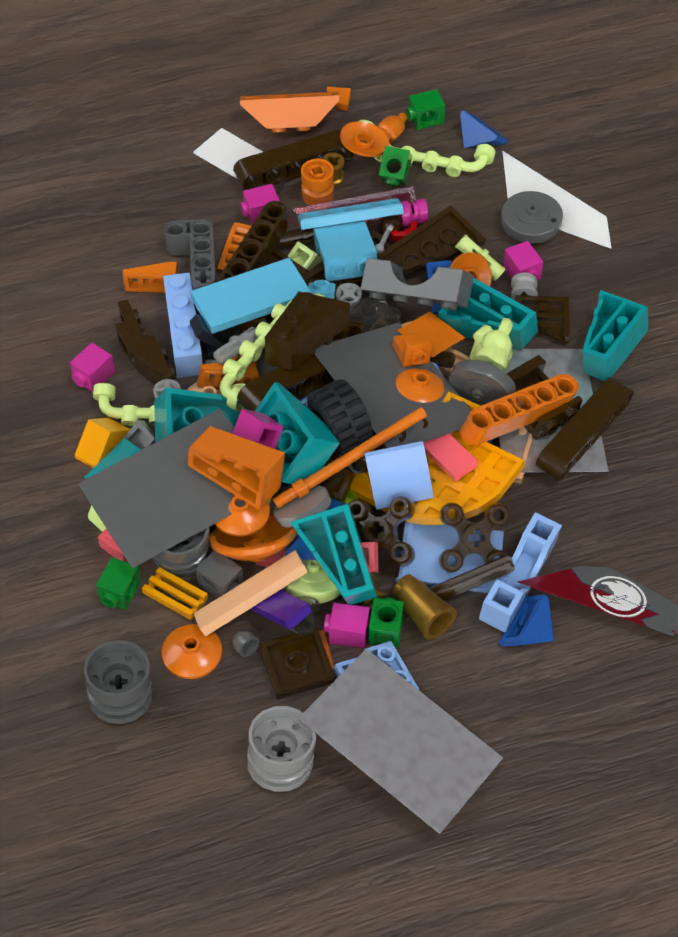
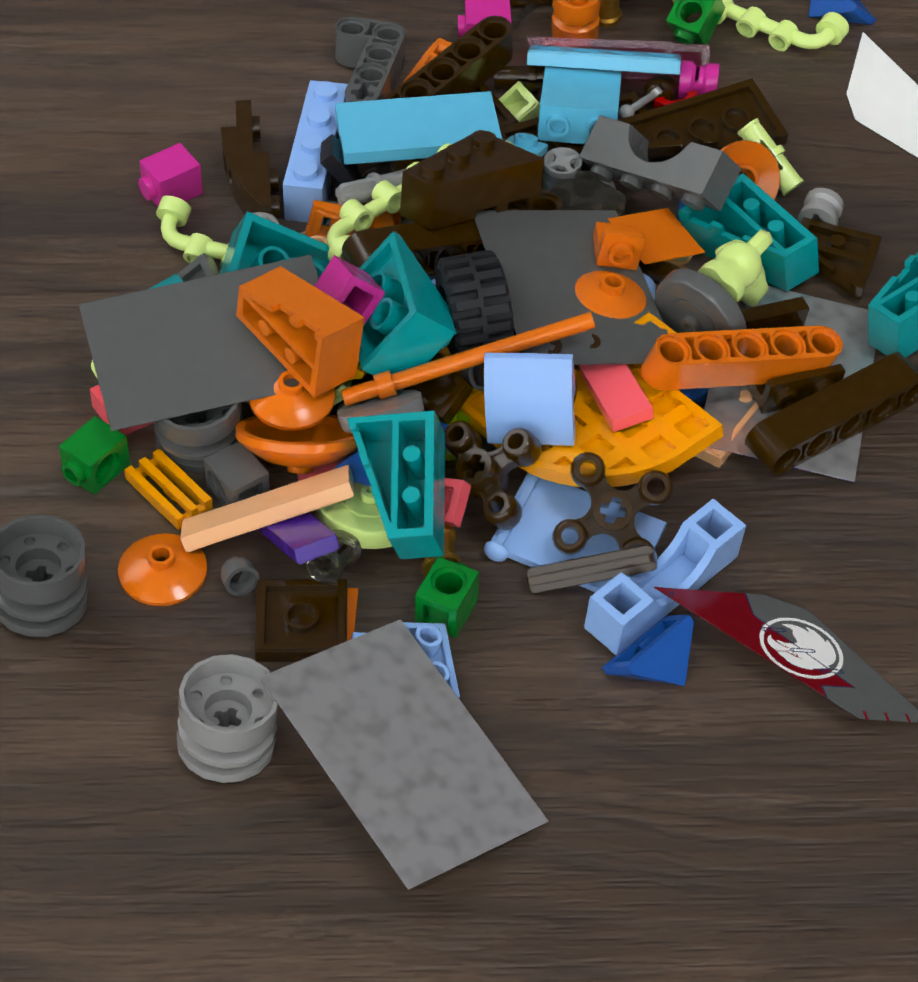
camera: 15 degrees right, 5 degrees down
(99, 439) = (142, 267): light orange slope -> none
(153, 275) = (297, 74): orange slope -> none
(348, 625) = (389, 586): dark pink brick -> none
(424, 607) = (510, 592): pearl gold plant -> none
(522, 259) = (833, 171): dark pink brick -> none
(531, 217) = (868, 122): dark grey wheel -> none

